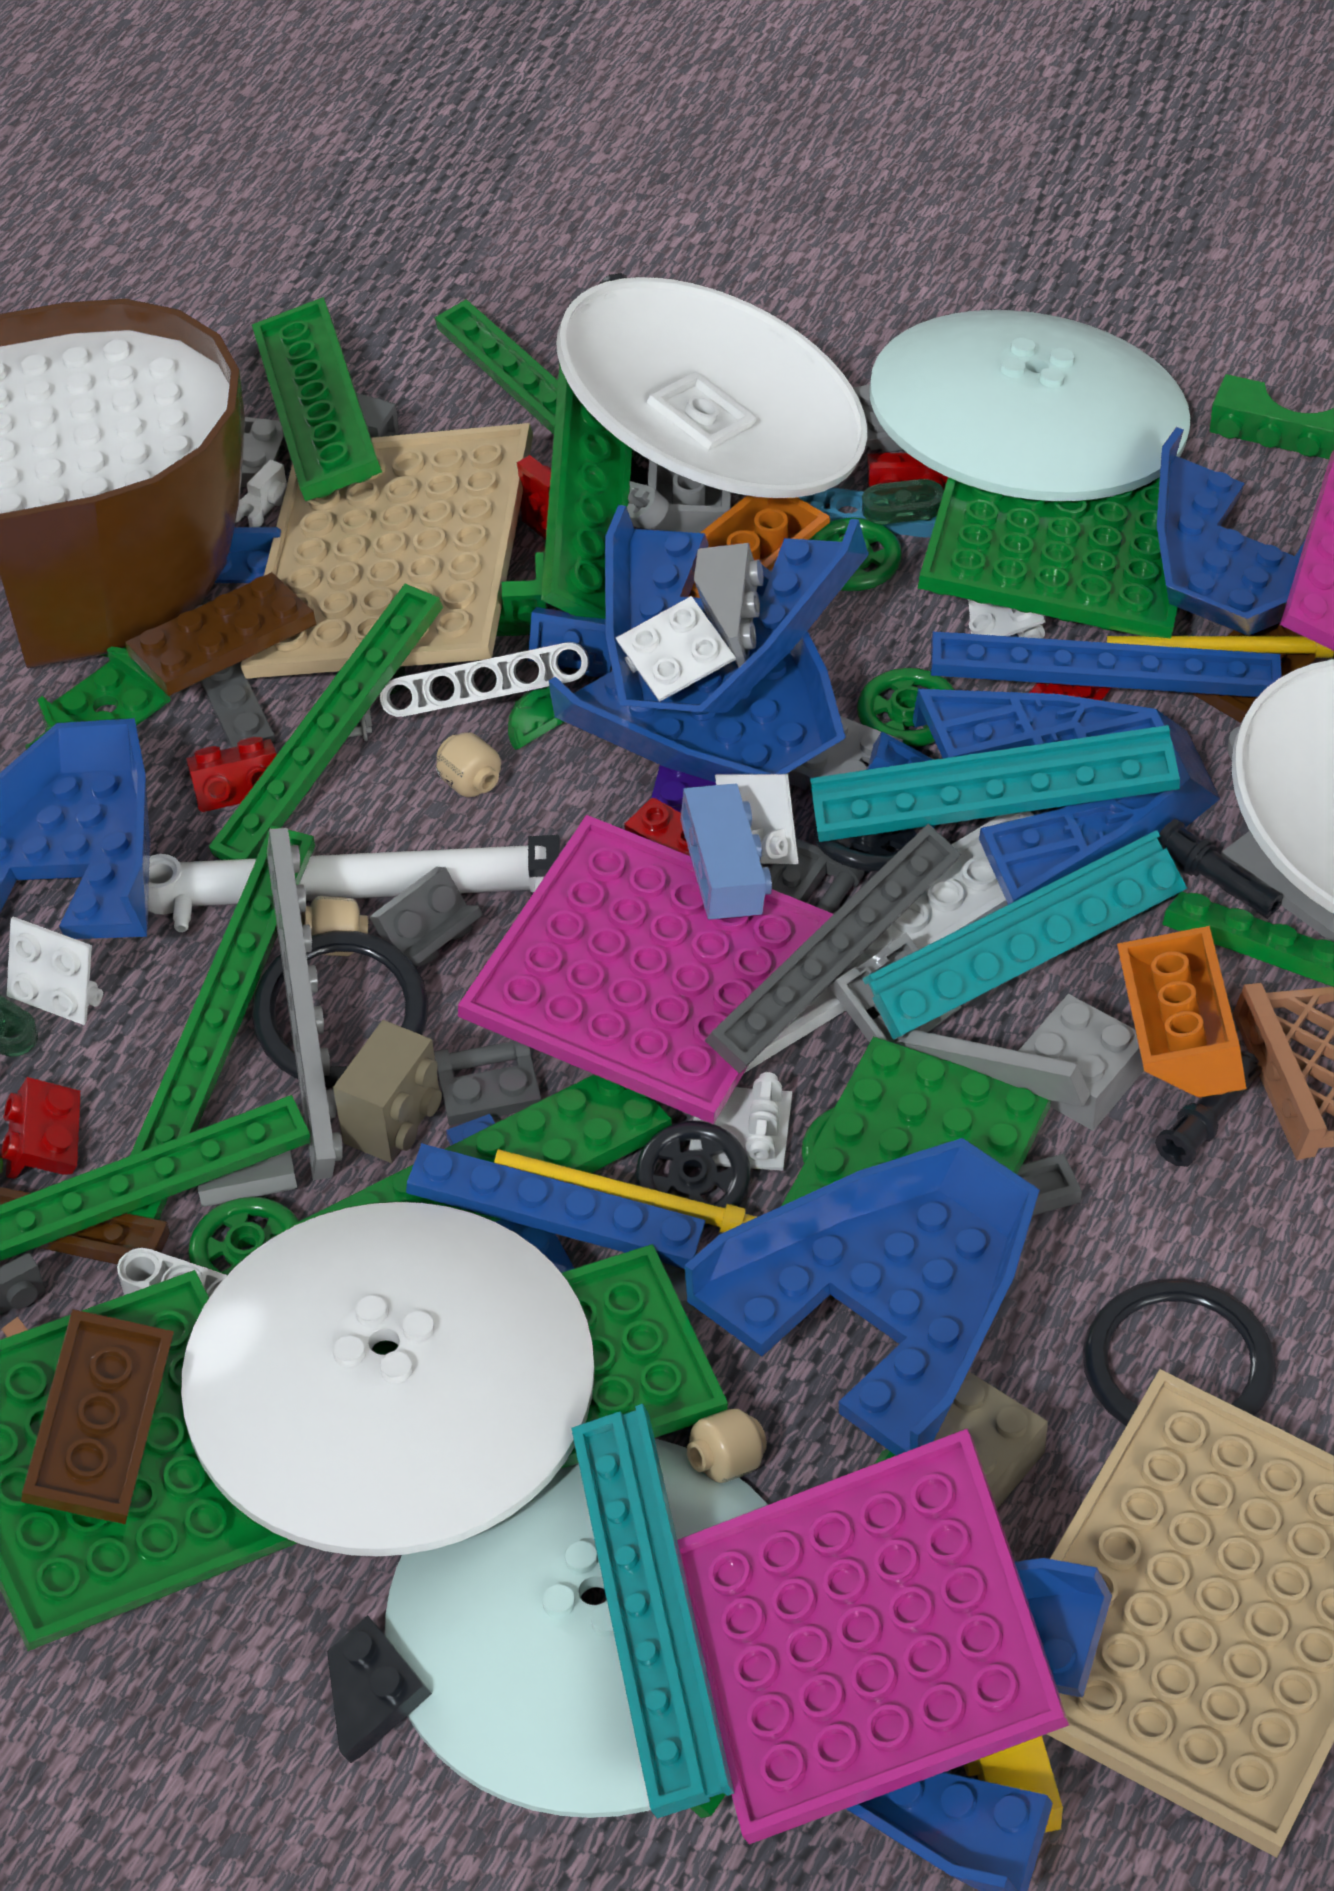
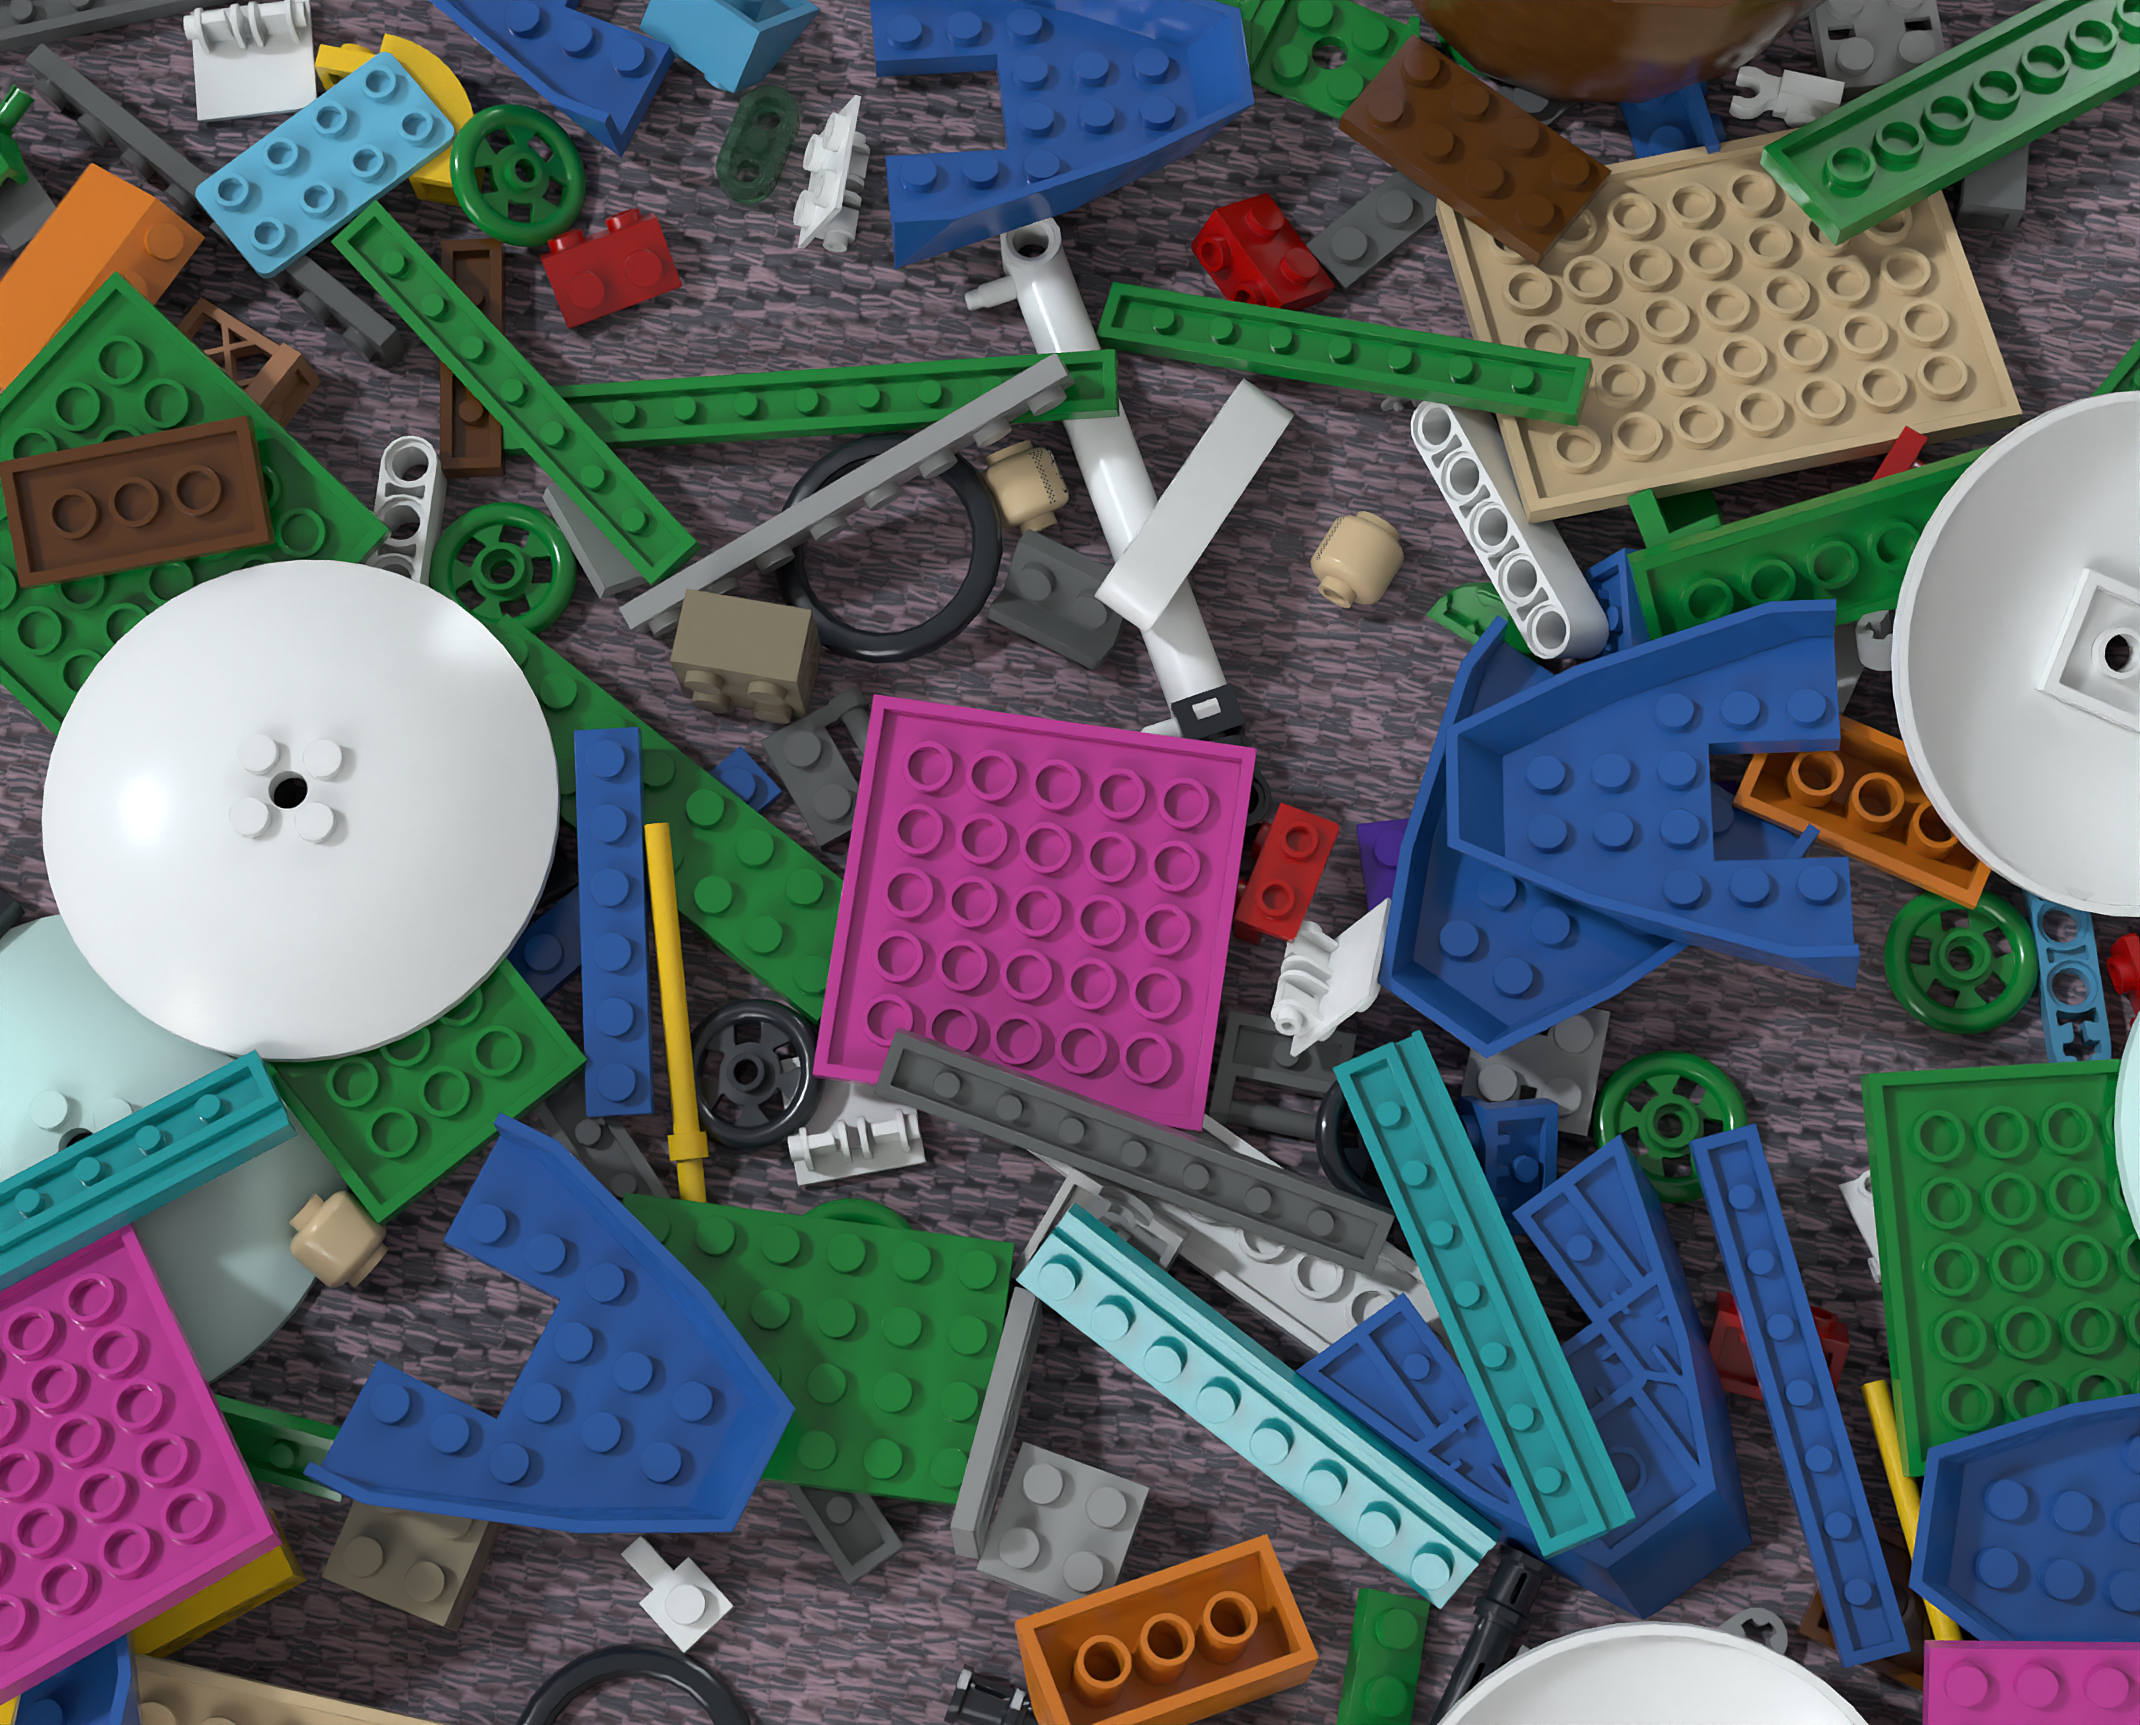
camera: 75 degrees right, 25 degrees up
(397, 823) = (1194, 506): none -> white beam
(675, 649) = (1560, 772): white hinge -> none
(724, 851) = (1234, 953): medium blue brick -> none
(728, 588) = (1682, 811): light grey slope -> none
(902, 501) = (2076, 1003): clear green plate -> none
(1057, 1300) = (682, 1599): none -> white plate

